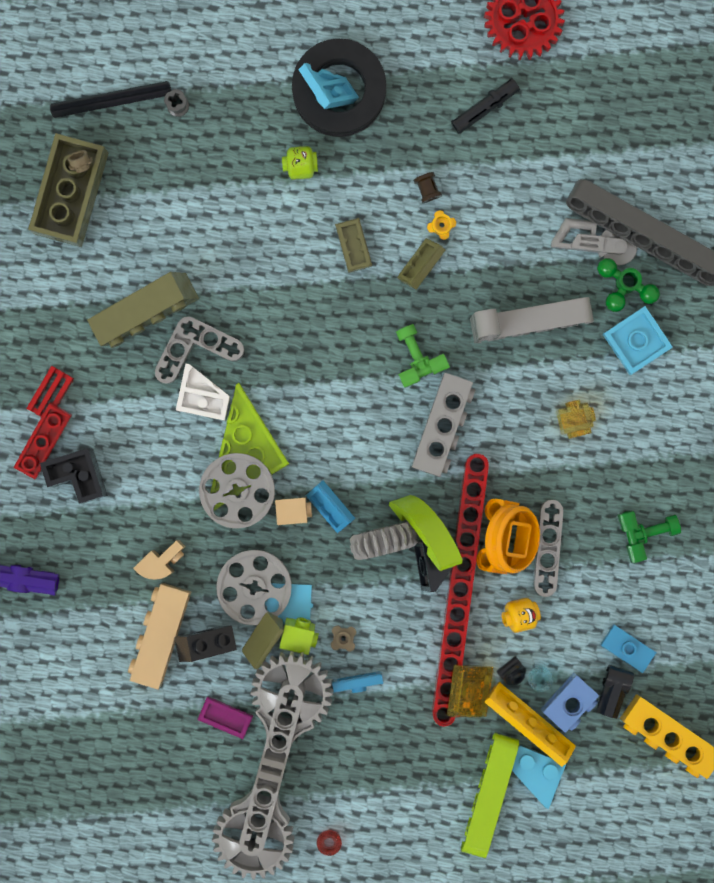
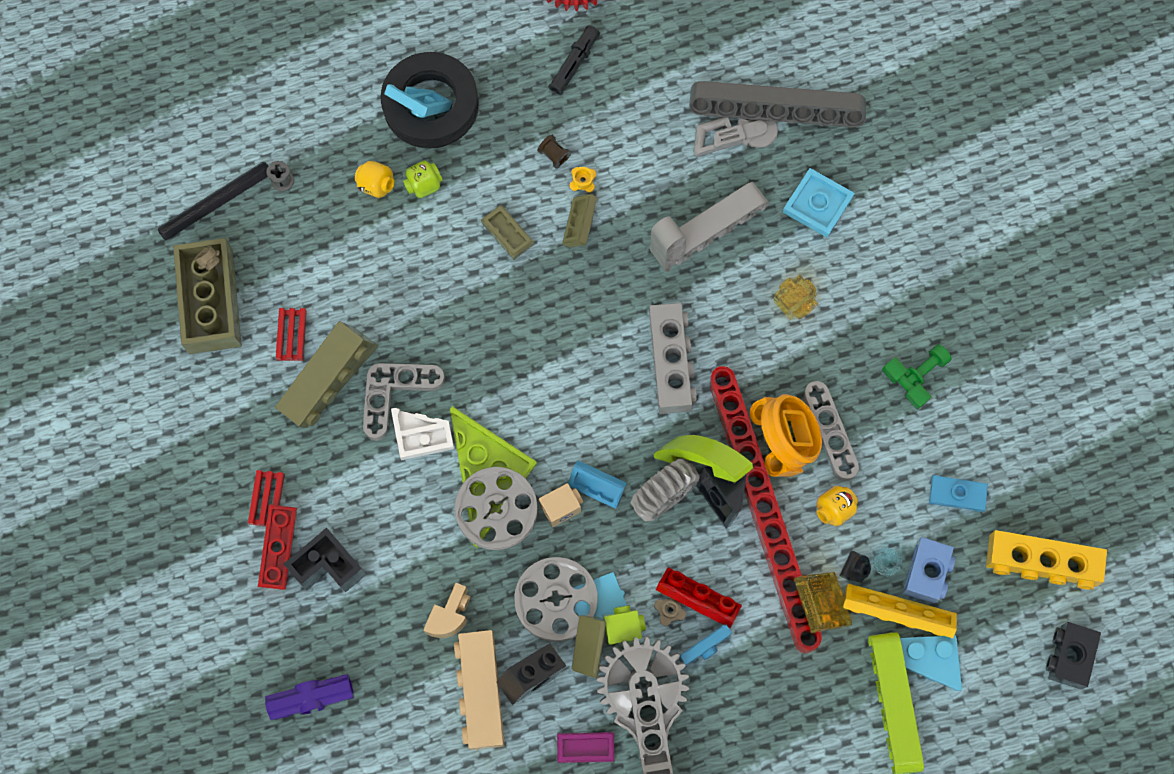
camera: 20 degrees left, 15 degrees down
(136, 236) = (290, 339): none -> red tile
(258, 143) = (374, 179): none -> yellow head
(371, 639) = (698, 597): none -> red tile
(422, 365) = (623, 312): bright green bar -> none
(615, 687) = (966, 535): black piece -> none
(616, 301) = (780, 175): green piece -> none
(652, 837) = (1084, 643): none -> black brick

